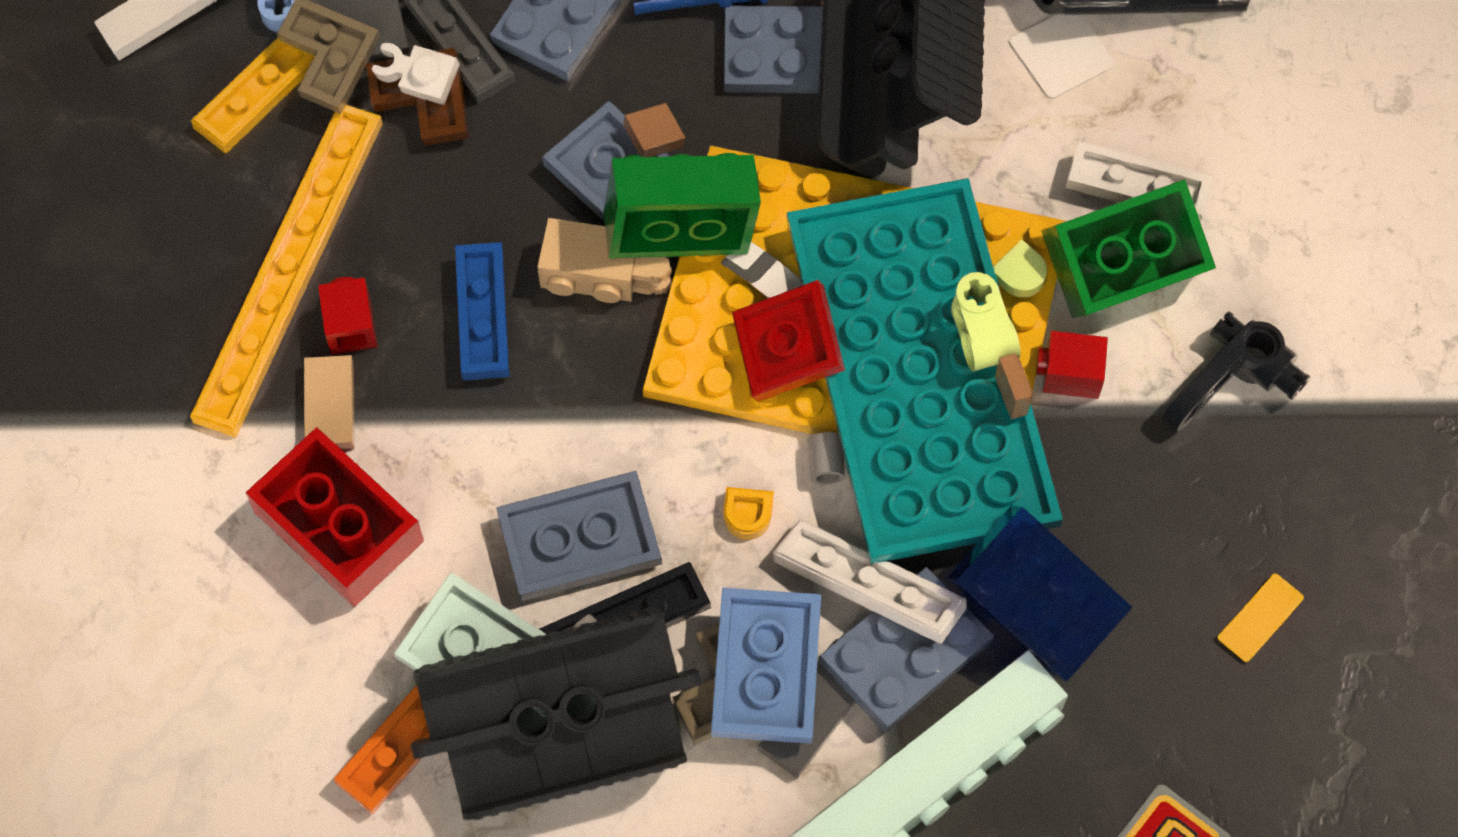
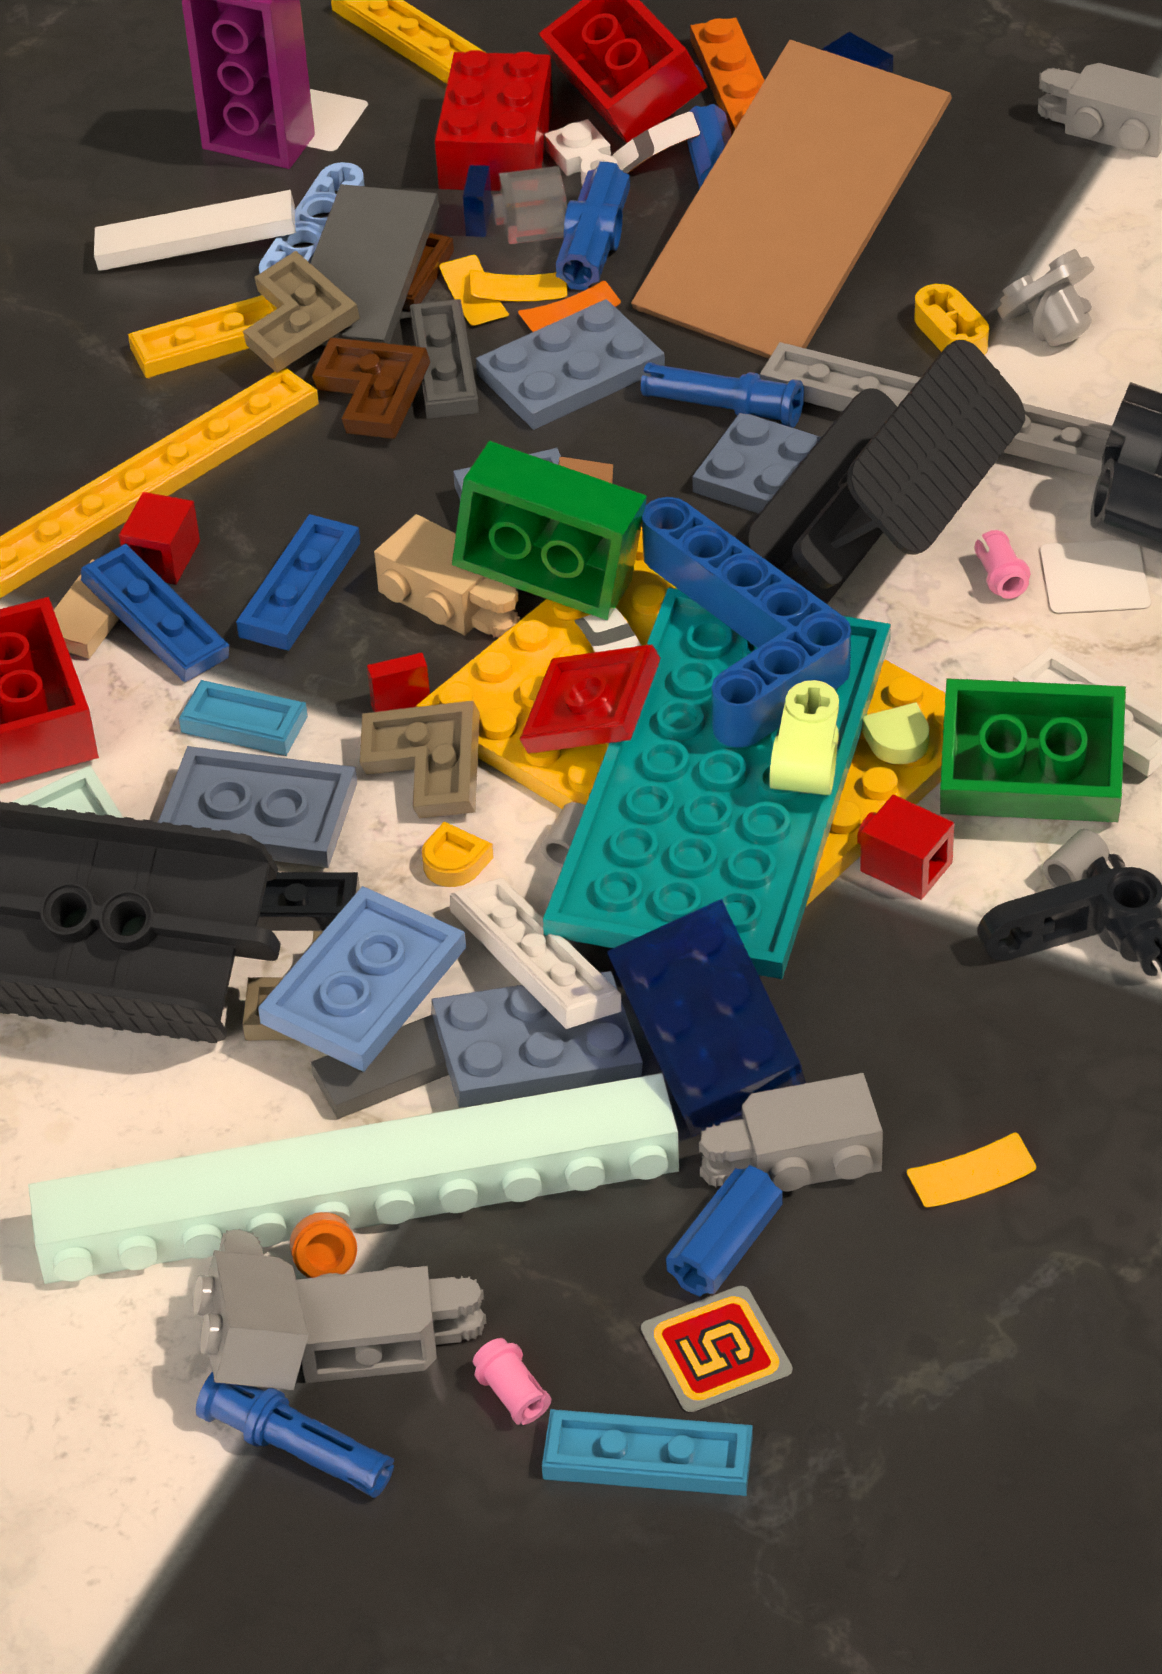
camera: 30 degrees right, 20 degrees down
(387, 389) = (155, 613): none -> blue tile
(422, 75) = (375, 359): white plate -> none
(512, 454) = (243, 717): none -> dark azure tile
(621, 378) = (398, 683): none -> red tile
(684, 420) = (434, 742): none -> dark tan plate
(876, 221) = (791, 627): none -> blue beam
(1002, 77) = (1006, 573): none -> bright pink pin
(1013, 385) = (802, 810): medium nougat tile -> none
(1132, 752) = (724, 1231): none -> blue axle
(1141, 650) = (799, 1135): none -> light grey hinge
(1194, 323) = (1074, 858): none -> light grey hinge

